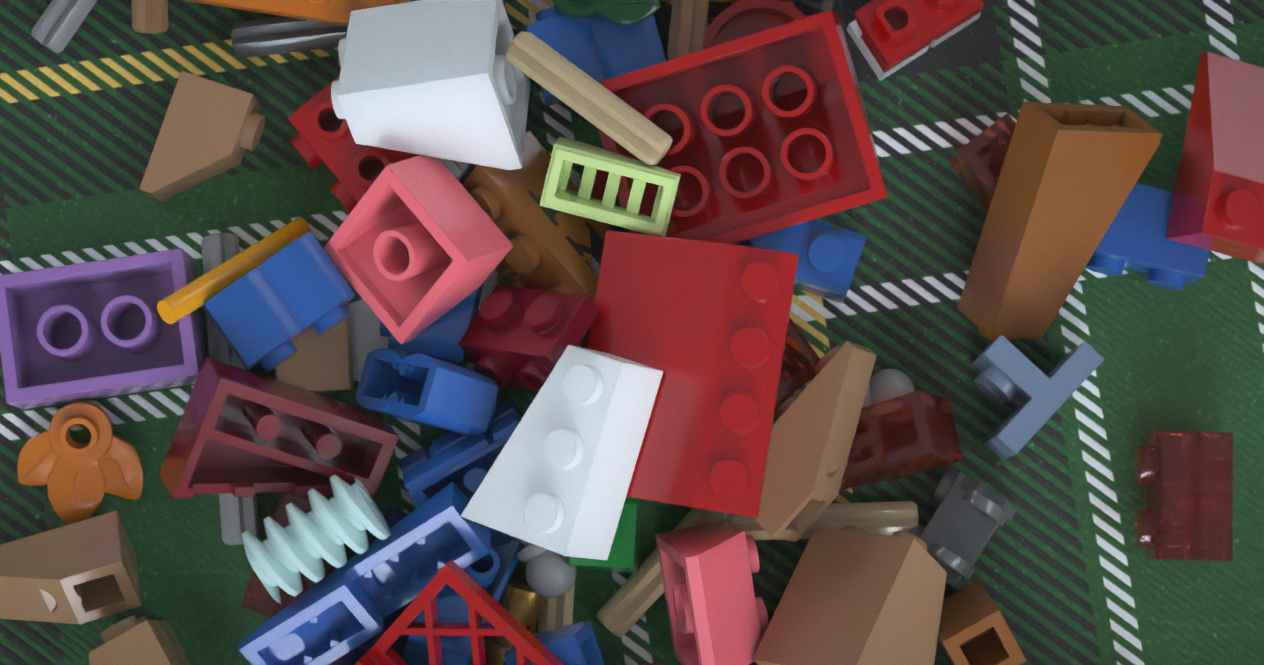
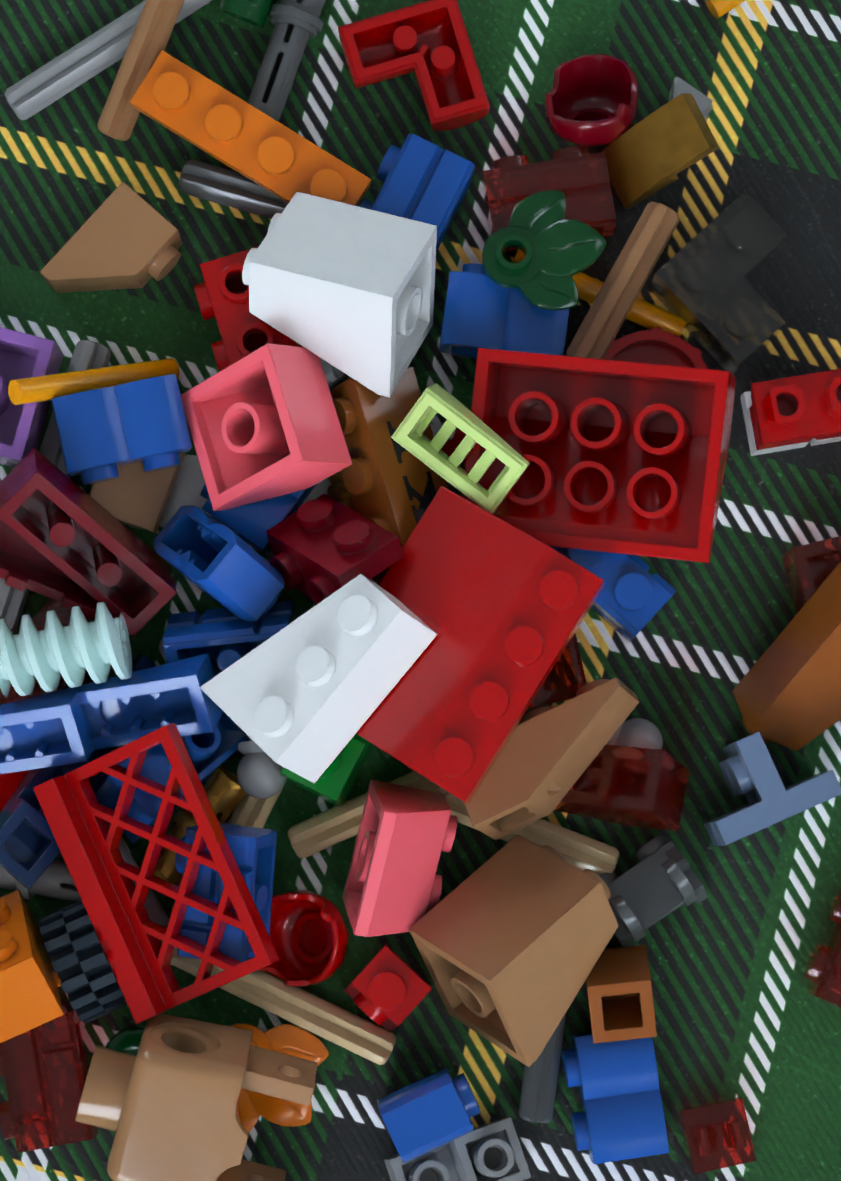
camera: 20 degrees right, 0 degrees up
(588, 98) = (476, 359): tan axle -> none

